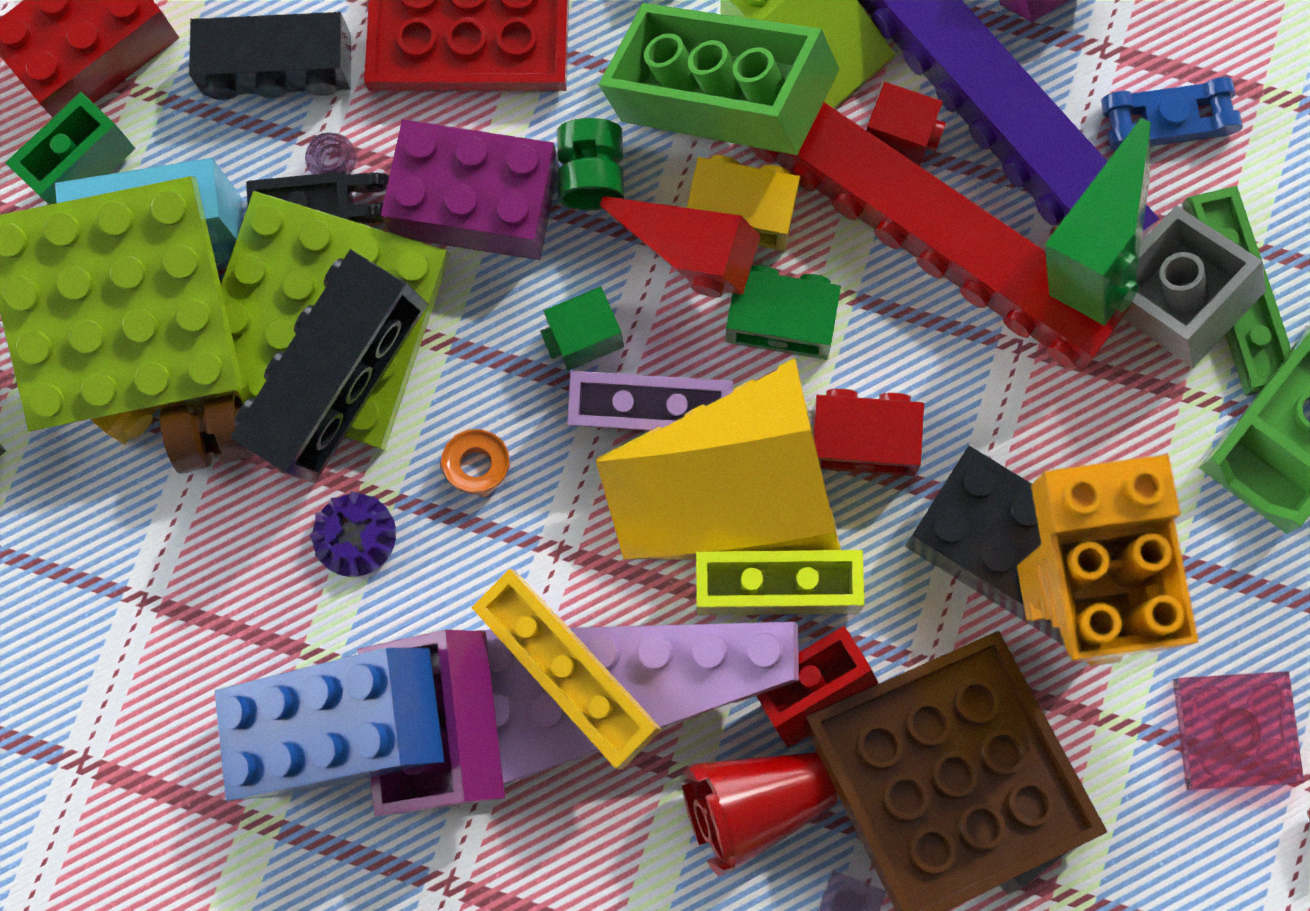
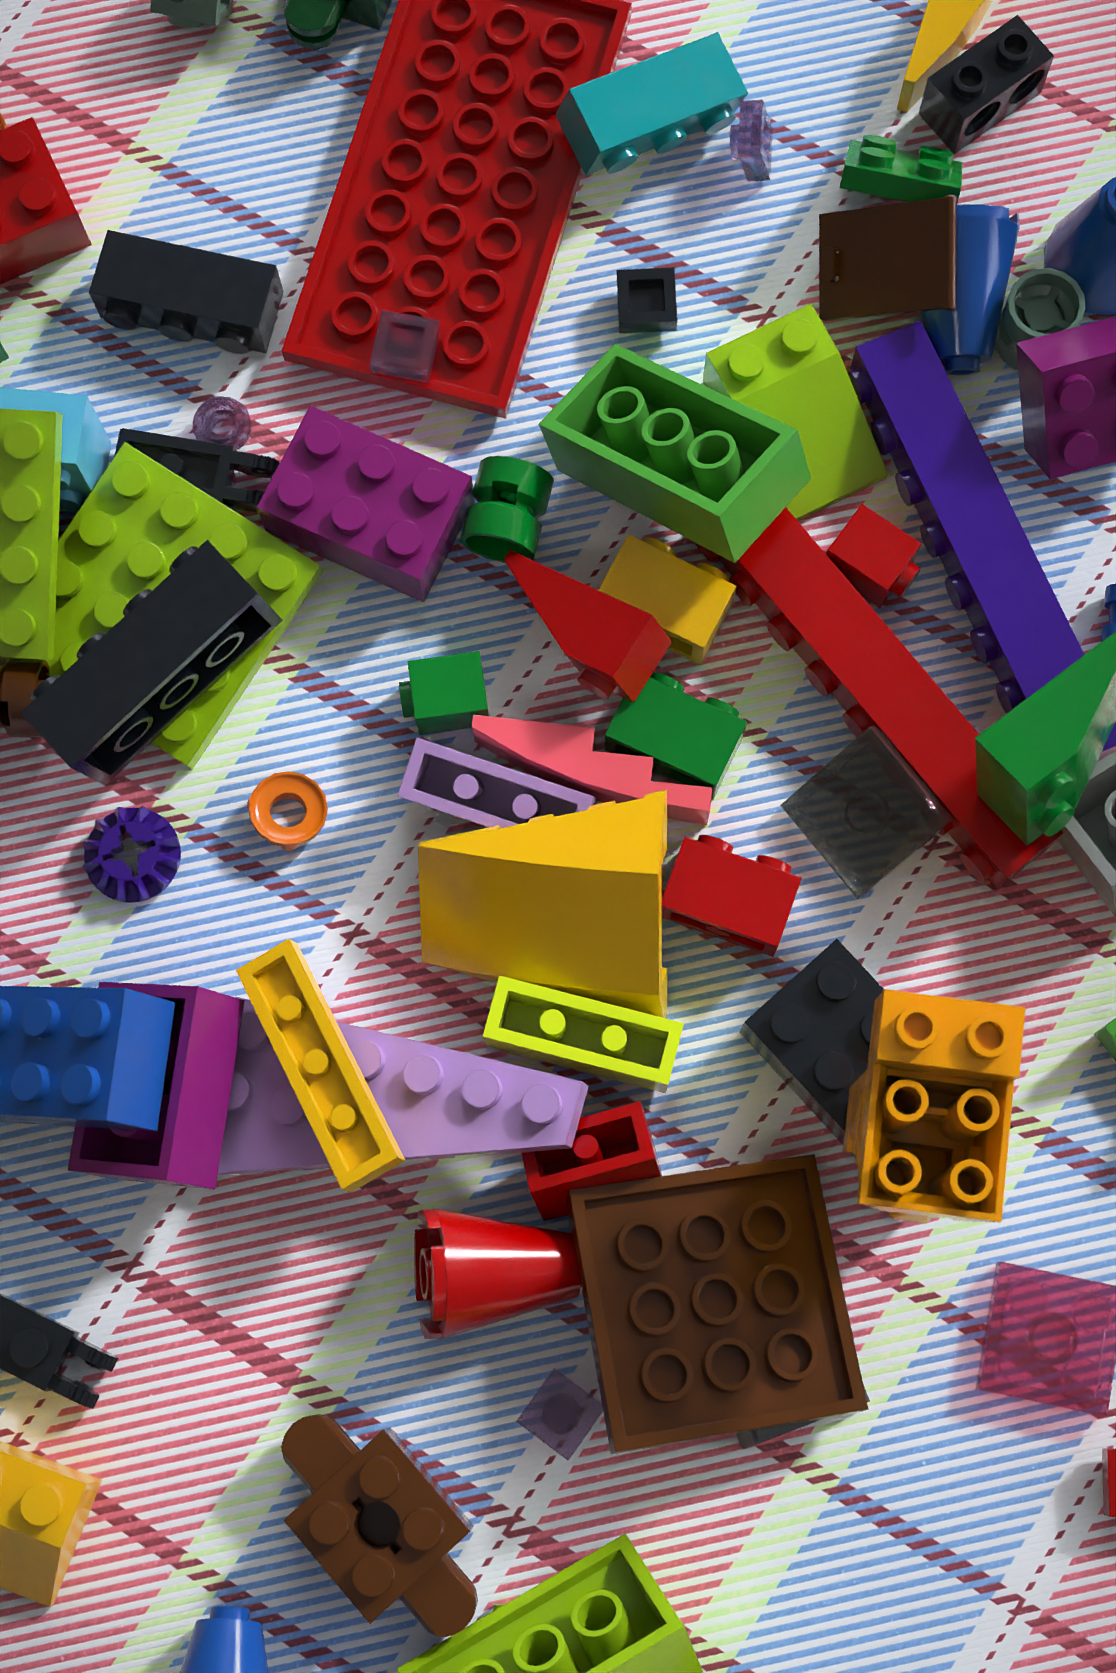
camera: 10 degrees right, 0 degrees up
(467, 51) = (405, 346): none -> clear purple tile
(699, 355) = (568, 758): none -> coral slope
(960, 334) = (866, 812): none -> clear smoke tile

